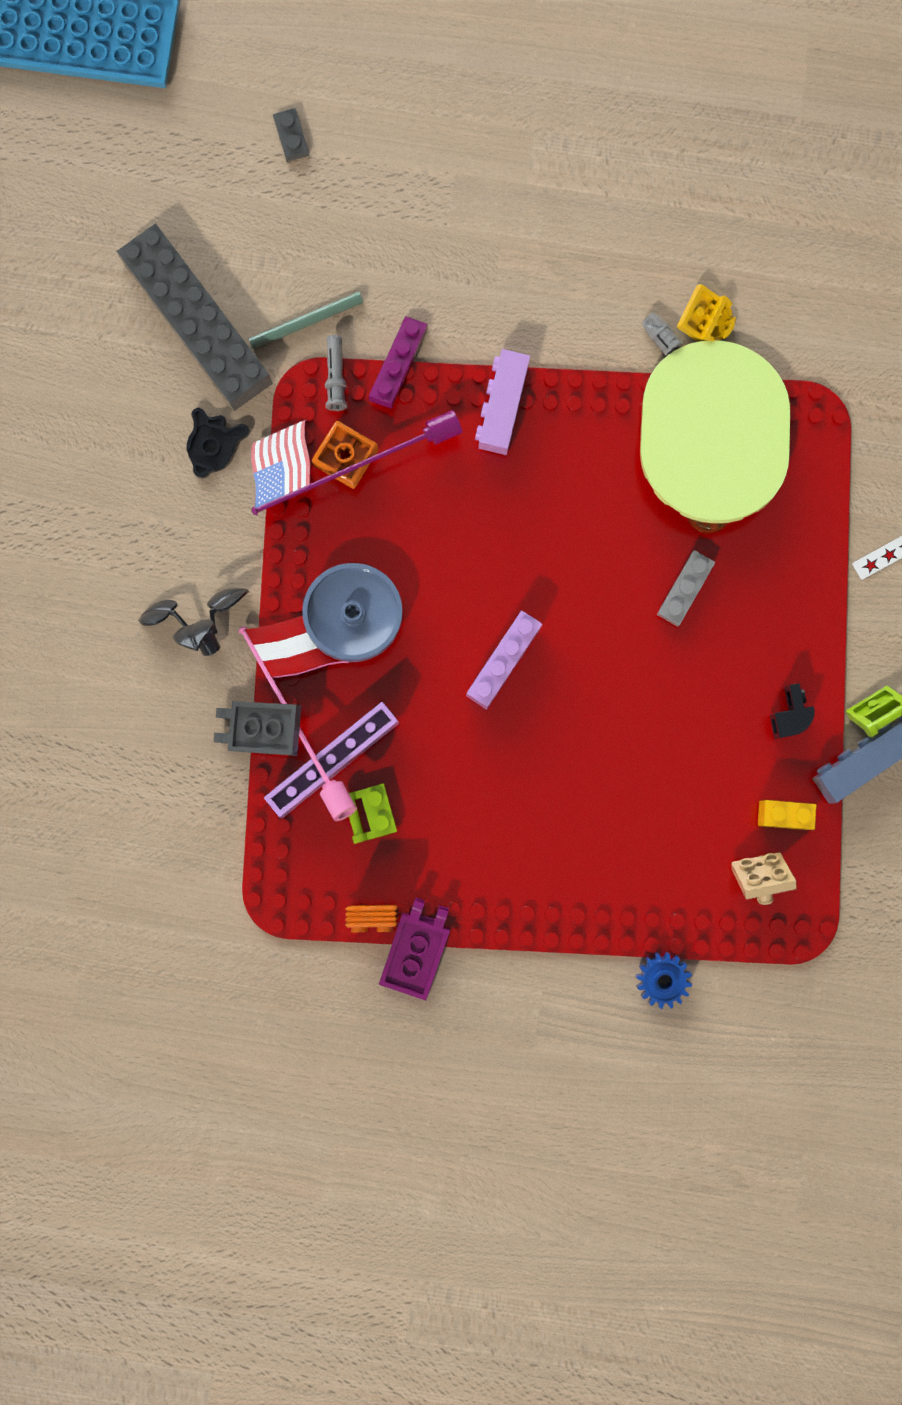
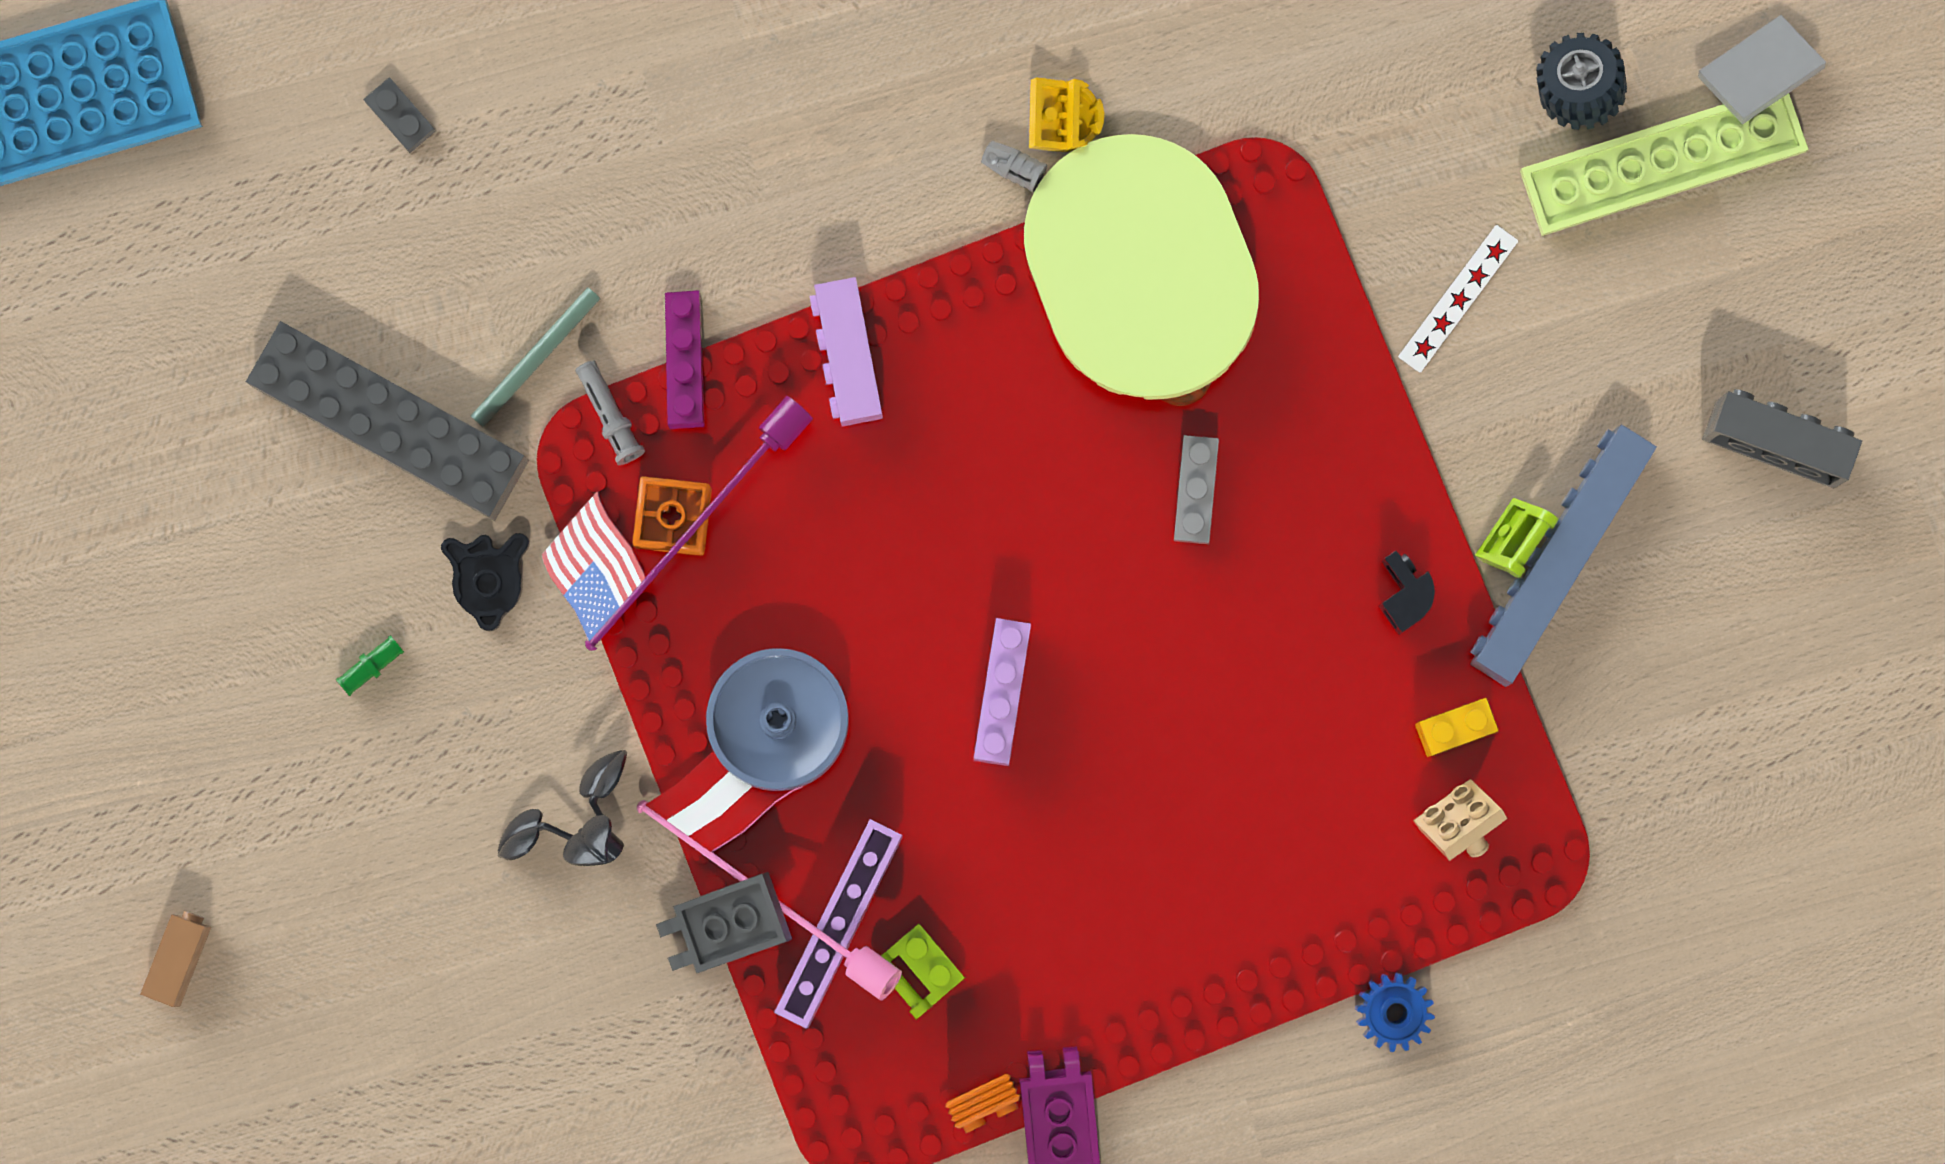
camera: 20 degrees left, 0 degrees up
(113, 464) = (369, 665): none -> green pin

